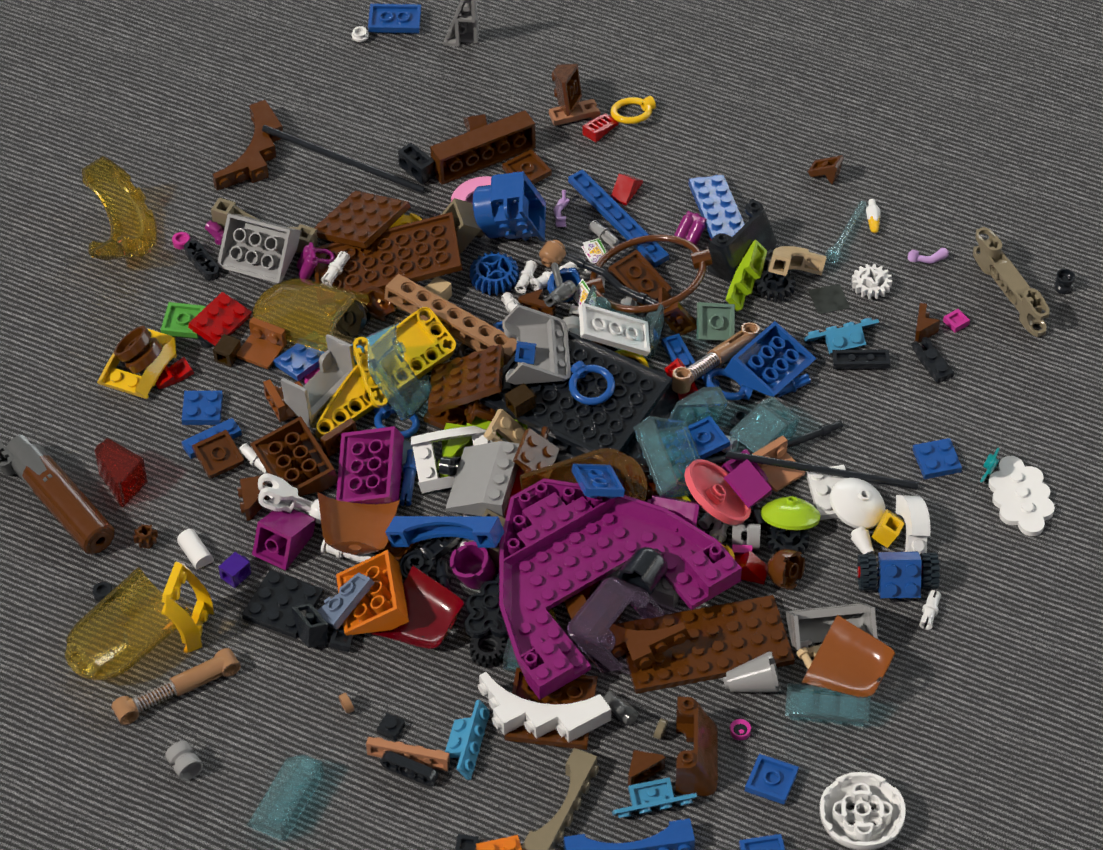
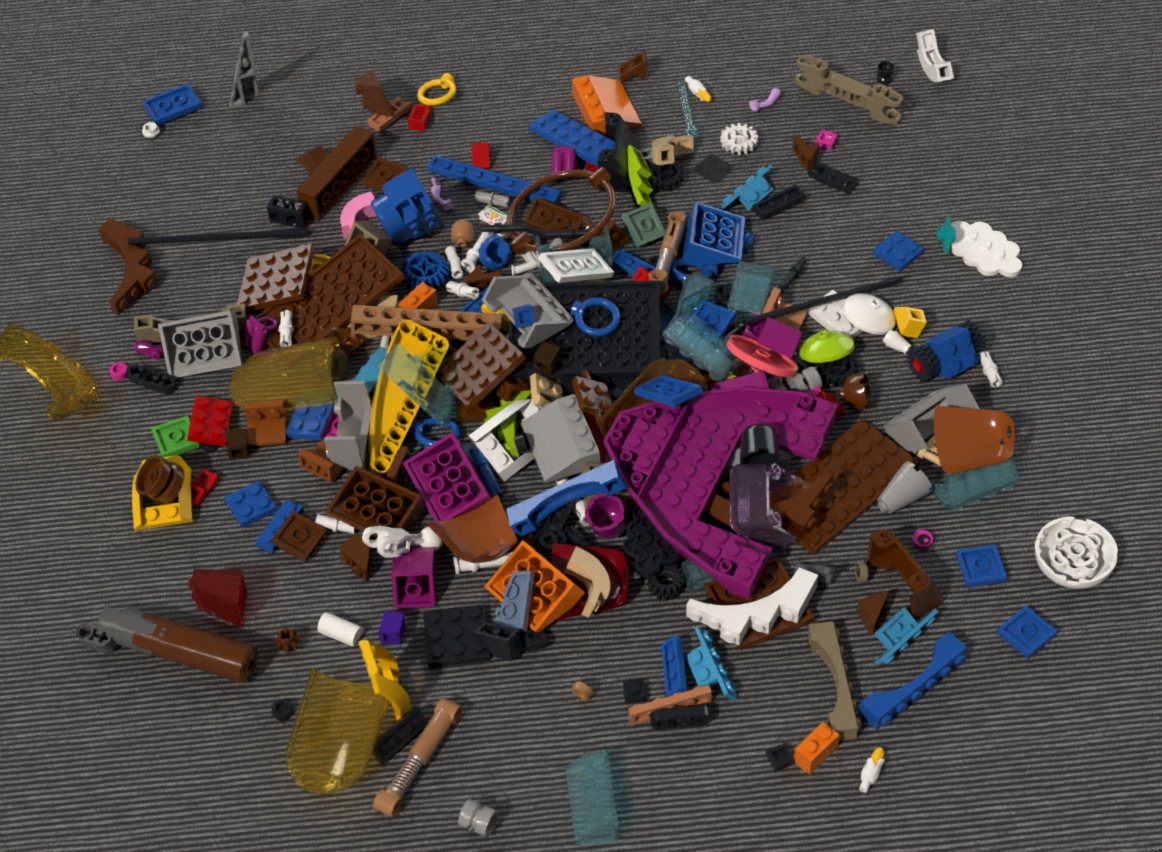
camera: 30 degrees left, 0 degrees up
(174, 660) = (399, 734): none -> black plate
(359, 356) = (373, 378): yellow beam -> none
(426, 606) = (594, 577): none -> tan arch
(437, 723) = (673, 666): none -> blue plate
(467, 297) = (420, 298): none -> orange brick
(563, 290) = (500, 255): dark grey piece -> none
(582, 292) = (519, 254): sticker -> none
(777, 188) = (602, 95): none -> orange slope
(916, 520) = (930, 302): white arch -> none

